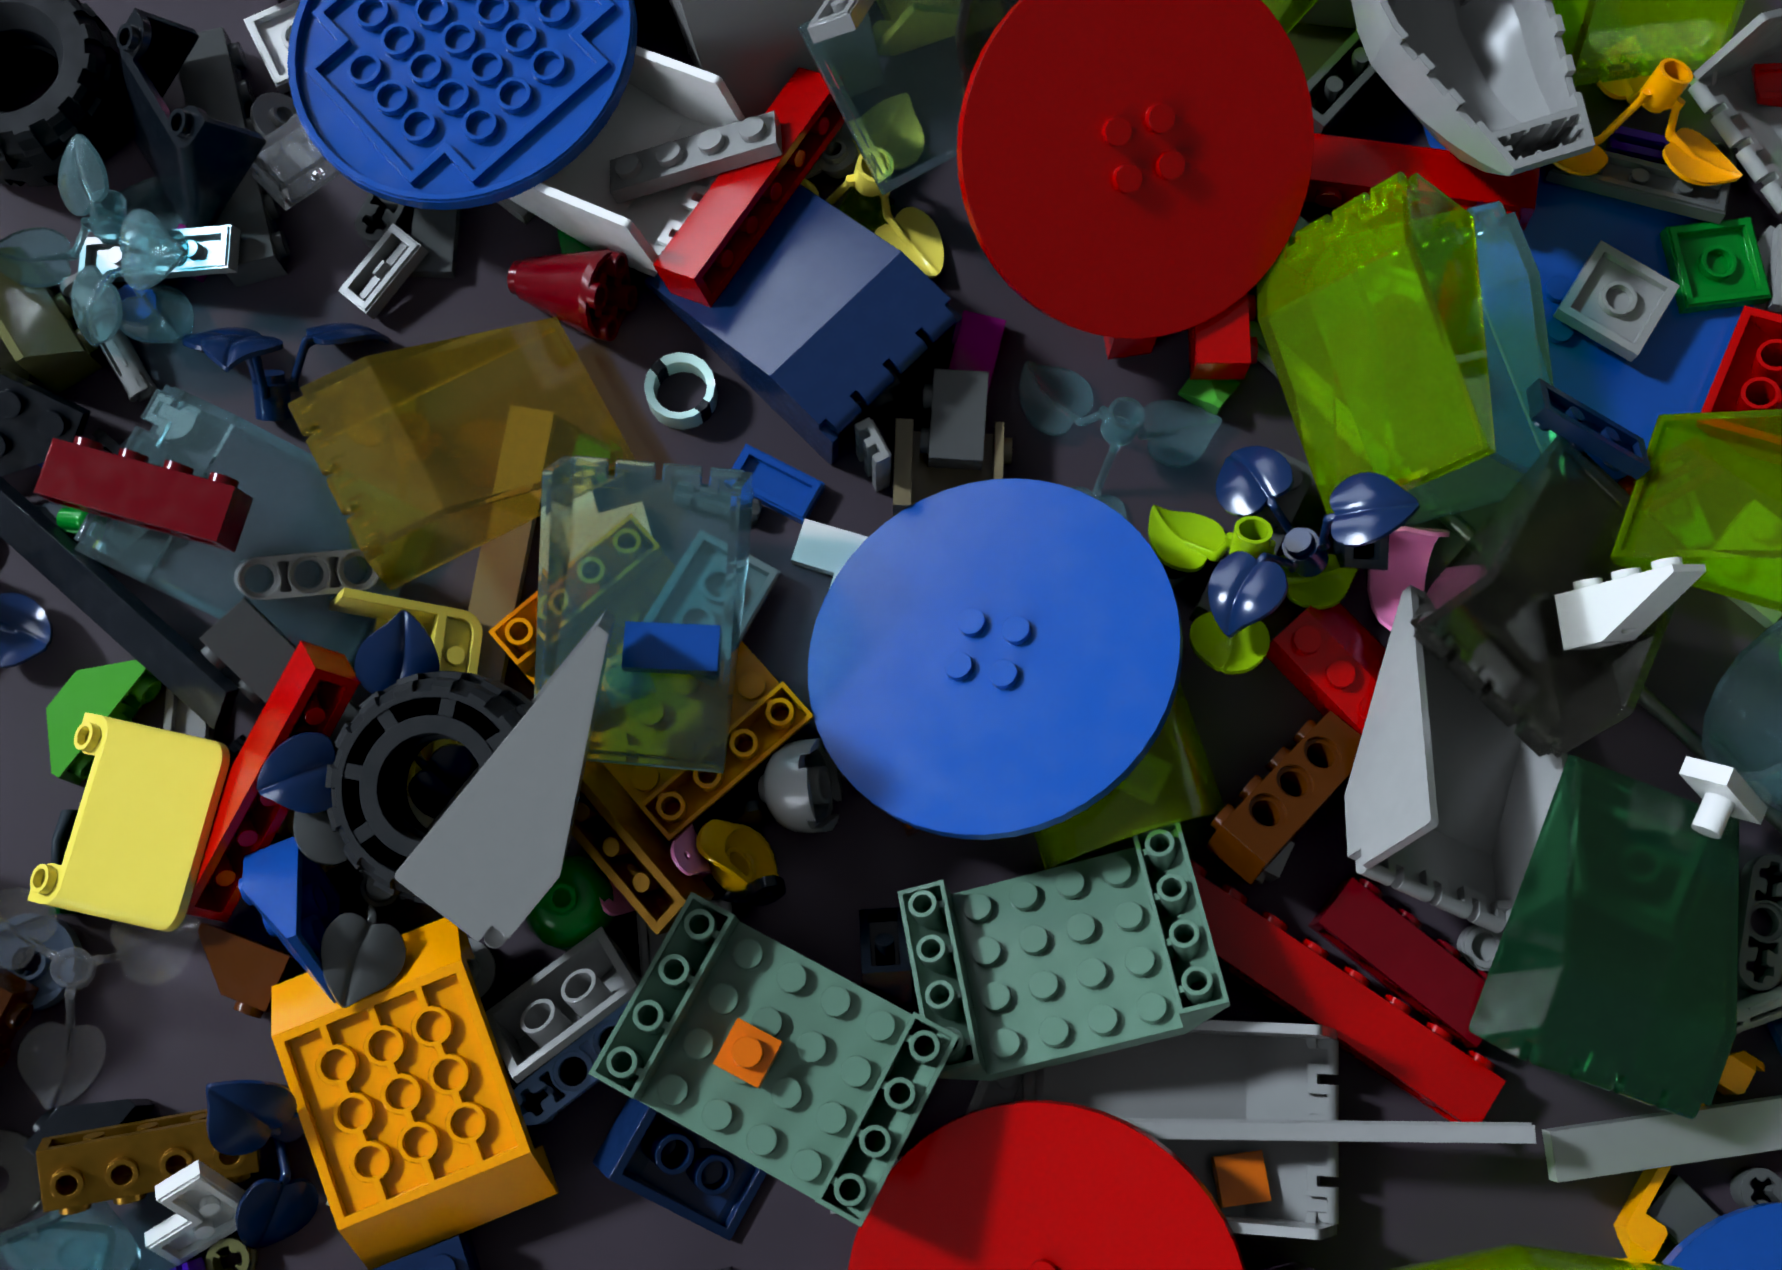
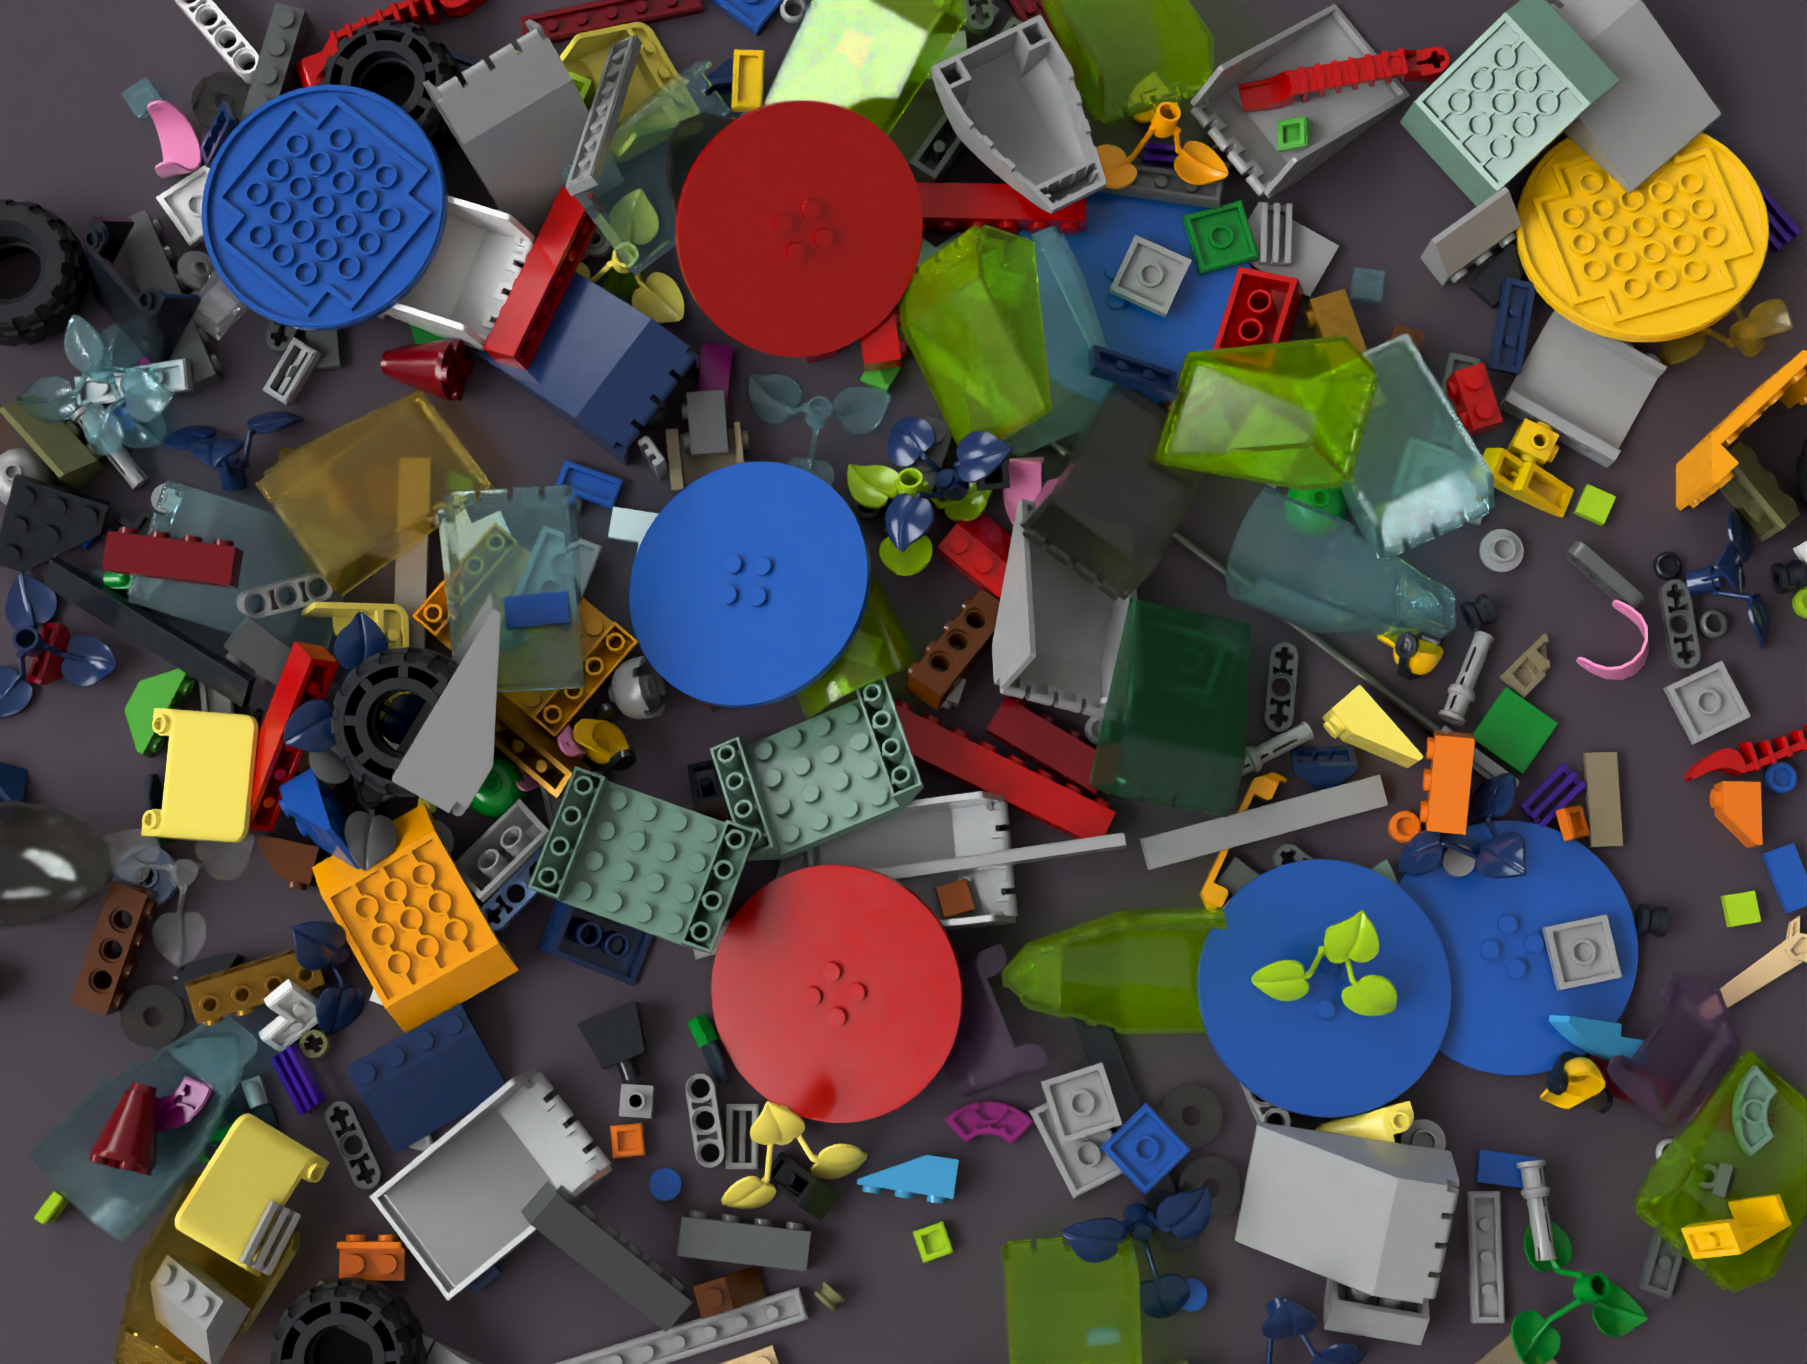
camera: 10 degrees left, 5 degrees up
(673, 364) = (514, 408): light aqua piece -> none
(696, 157) = (499, 264): light grey plate -> none
(748, 1053) = (626, 861): orange plate -> none
(1624, 607) = (1157, 493): white slope -> none
(1722, 795) = (1230, 610): white tile -> none

